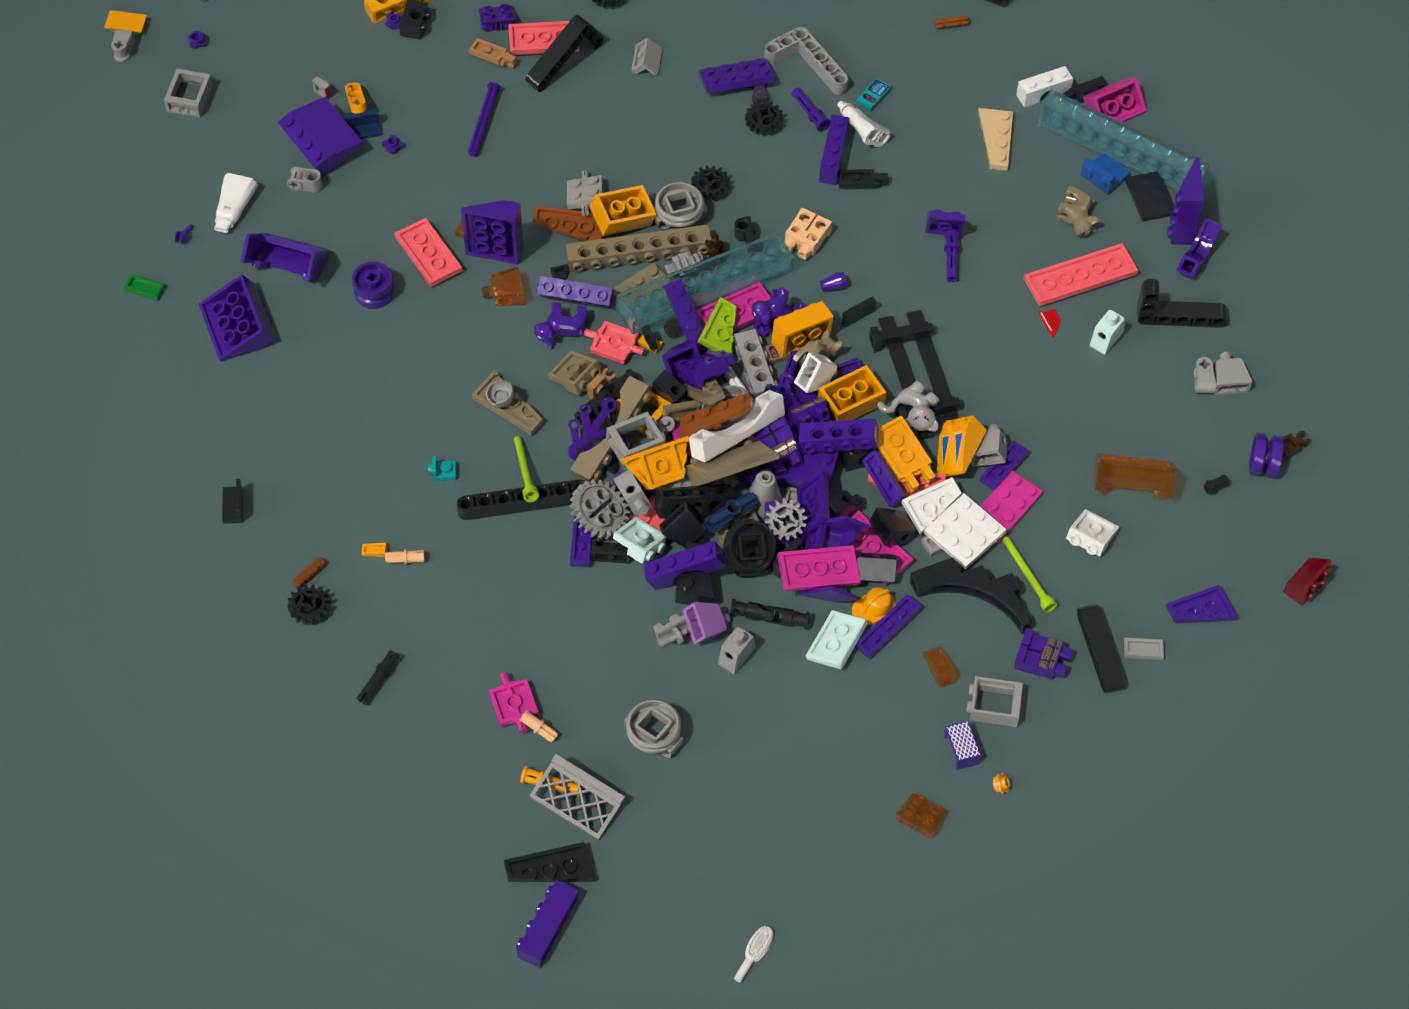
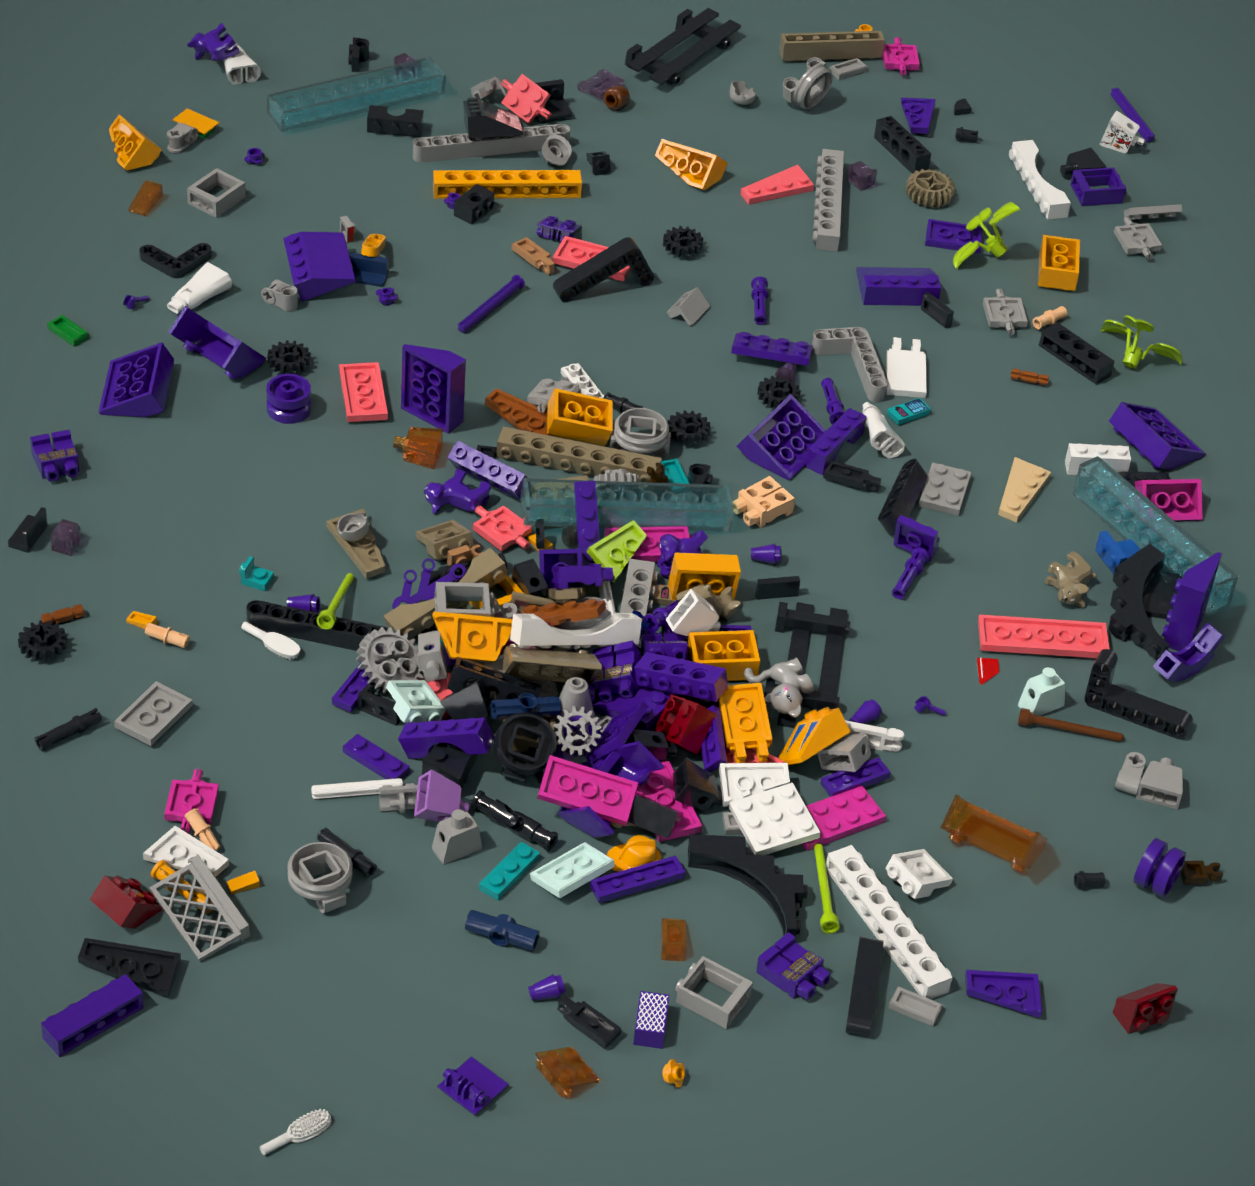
camera: 20 degrees right, 15 degrees down
(84, 69) = (132, 145): none -> light orange wedge
(130, 121) = (146, 198): none -> clear orange slope
(197, 179) = (178, 266): none -> black beam
(211, 420) = (56, 458): none -> dark purple hips
(268, 497) = (65, 537): none -> clear purple brick
(348, 242) = (289, 357): none -> black gear
(436, 634) = (153, 713): none -> light grey plate
(493, 526) = (274, 642): none -> white piece
(497, 481) = (305, 602): none -> dark purple cone
(515, 814) = (125, 901): none -> dark red slope
(535, 751) = (179, 847): none -> white wing
(593, 757) = (243, 883): none -> light orange piece
(611, 178) = (578, 375): none -> white tile
(631, 636) = (351, 788): none -> white axle
(632, 602) = (375, 758): none -> dark purple plate
(645, 180) = (621, 404): none -> black pin
(653, 694) = (358, 860): none -> black pin
(698, 23) = (759, 295): none -> dark purple pin
(725, 234) = (674, 472): none -> teal tile
(788, 659) = (509, 871): none -> teal plate
(791, 163) = (782, 439): none -> dark purple slope
(812, 715) = (502, 930): none -> dark blue piece
(852, 53) = (906, 370): none -> white tile
(856, 474) = (685, 723): none -> dark red slope
(860, 857) = (472, 1085): none -> dark purple hinge
(872, 751) = (547, 988): none -> dark purple cone
(912, 184) = (902, 495): none -> black beam
(917, 766) = (589, 1021): none -> black hinge
(938, 161) = (945, 489): none -> light grey plate
(983, 403) = (867, 713): none -> dark purple cone
(1004, 421) = (878, 735): none -> white hinge
(1022, 375) = (924, 703): none -> dark purple hand
(1076, 43) = (1154, 436): none -> dark purple slope
(1093, 594) = (888, 923): none -> white brick
(1103, 355) = (1027, 718): none -> reddish brown piece
(1130, 215) = (1131, 619): none -> black arch

